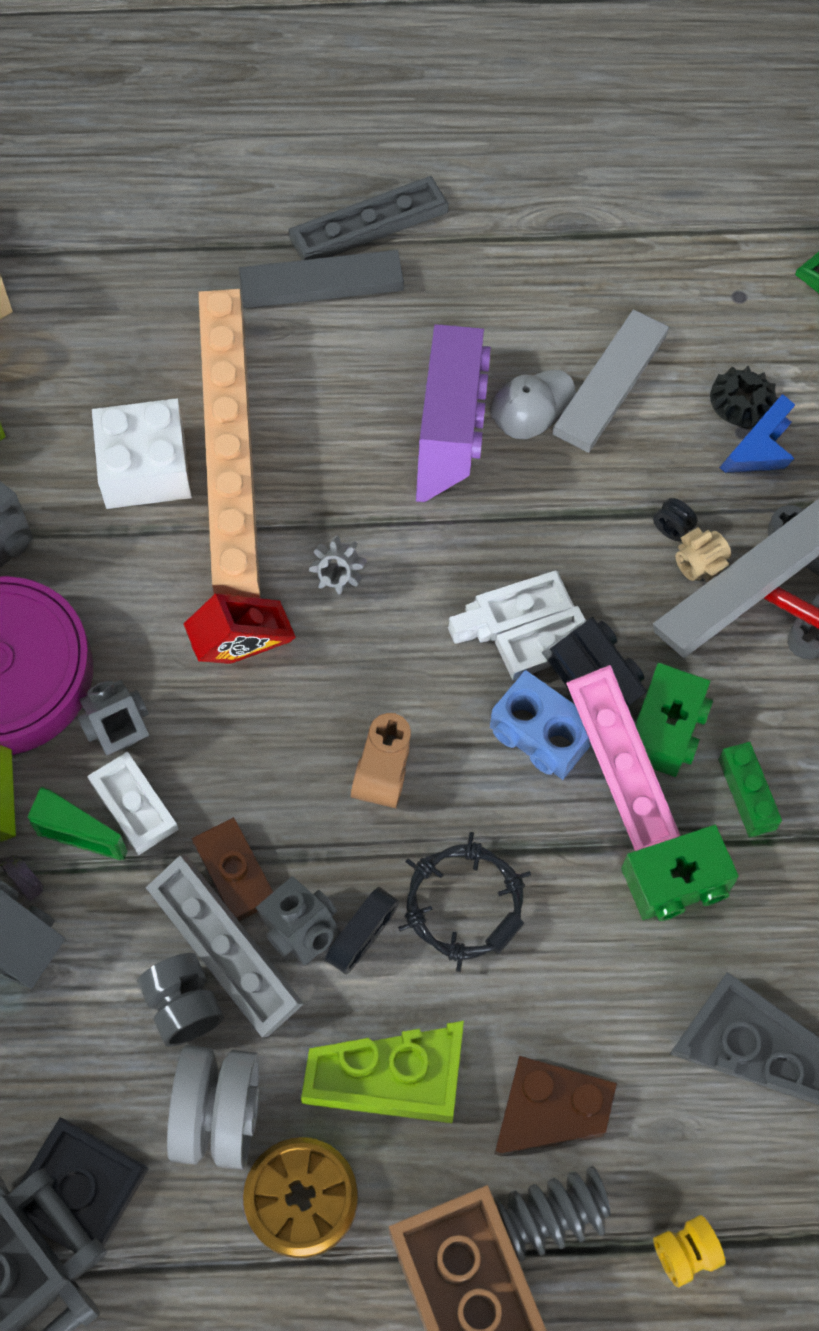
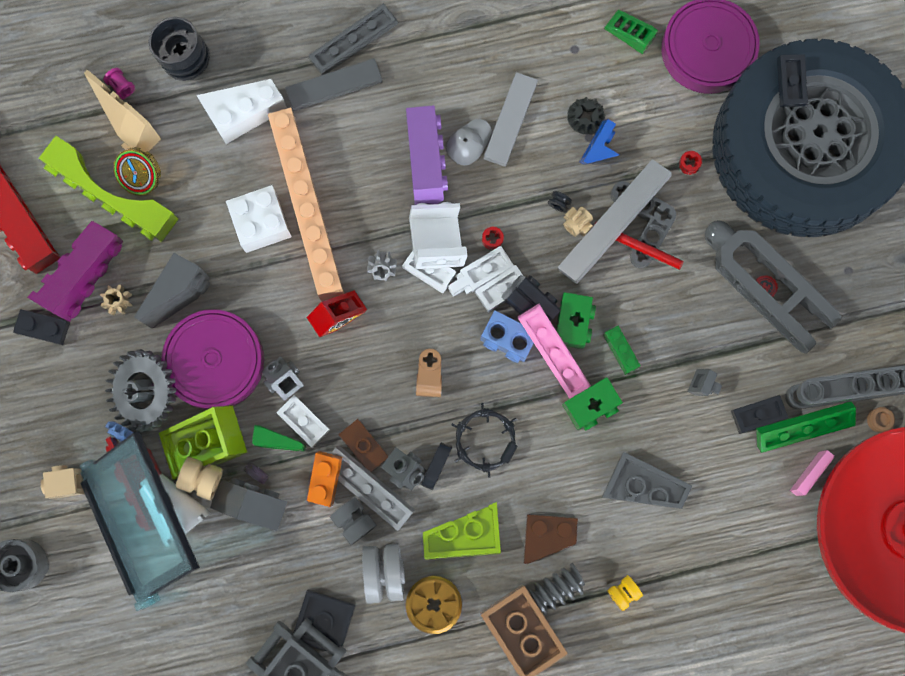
camera: 10 degrees left, 15 degrees up
(79, 178) = (179, 48): none -> black wheel
(145, 911) = (324, 479): none -> orange plate
(156, 282) = (241, 107): none -> white wedge
(420, 588) = (436, 277): none -> white plate
(446, 532) = (436, 236): none -> white panel
(547, 546) = (486, 234): none -> red bush

